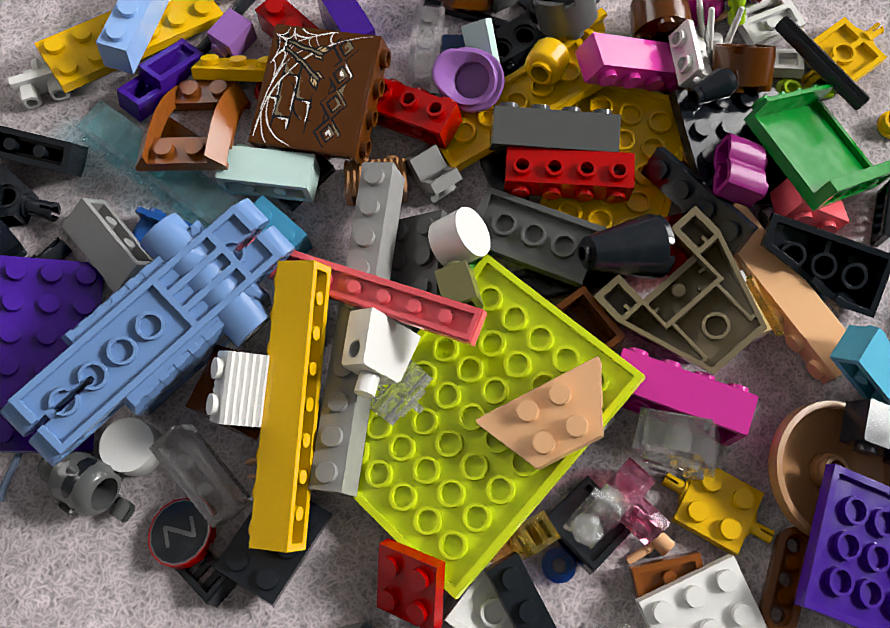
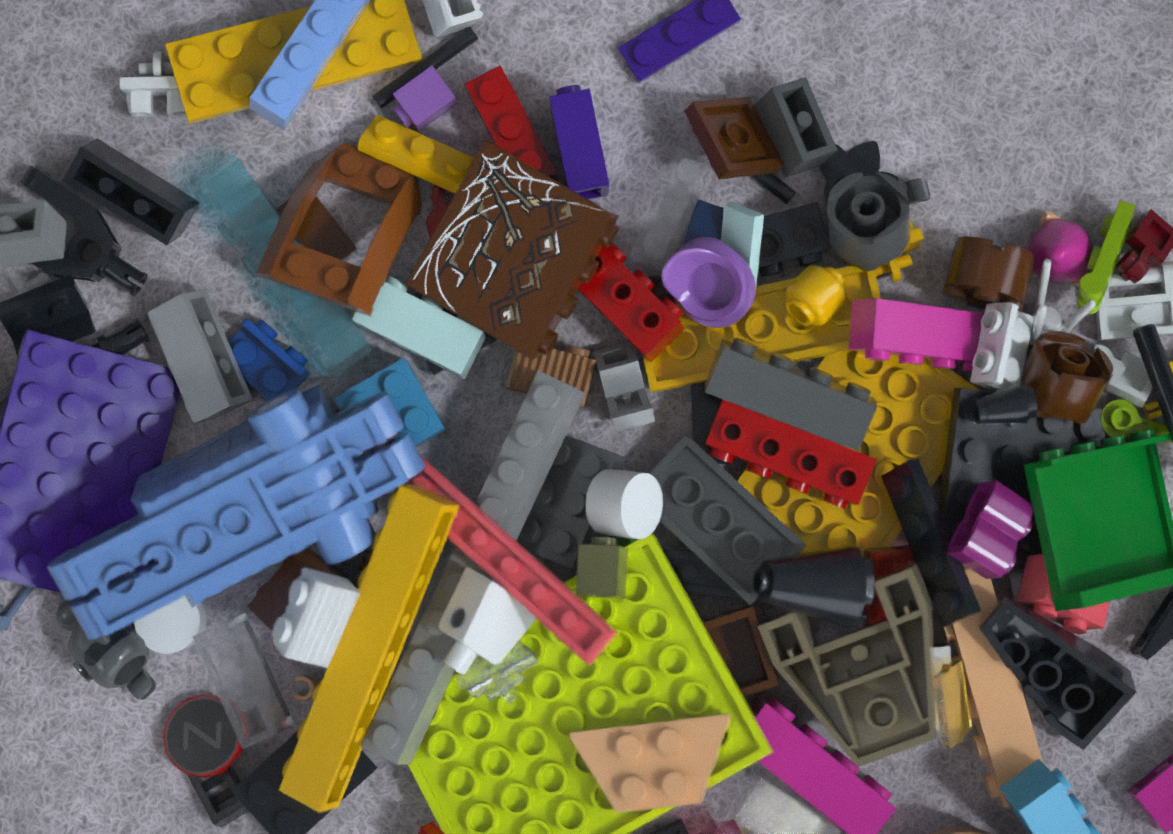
camera: 10 degrees right, 15 degrees up
(156, 78) = (315, 131): dark purple slope -> none

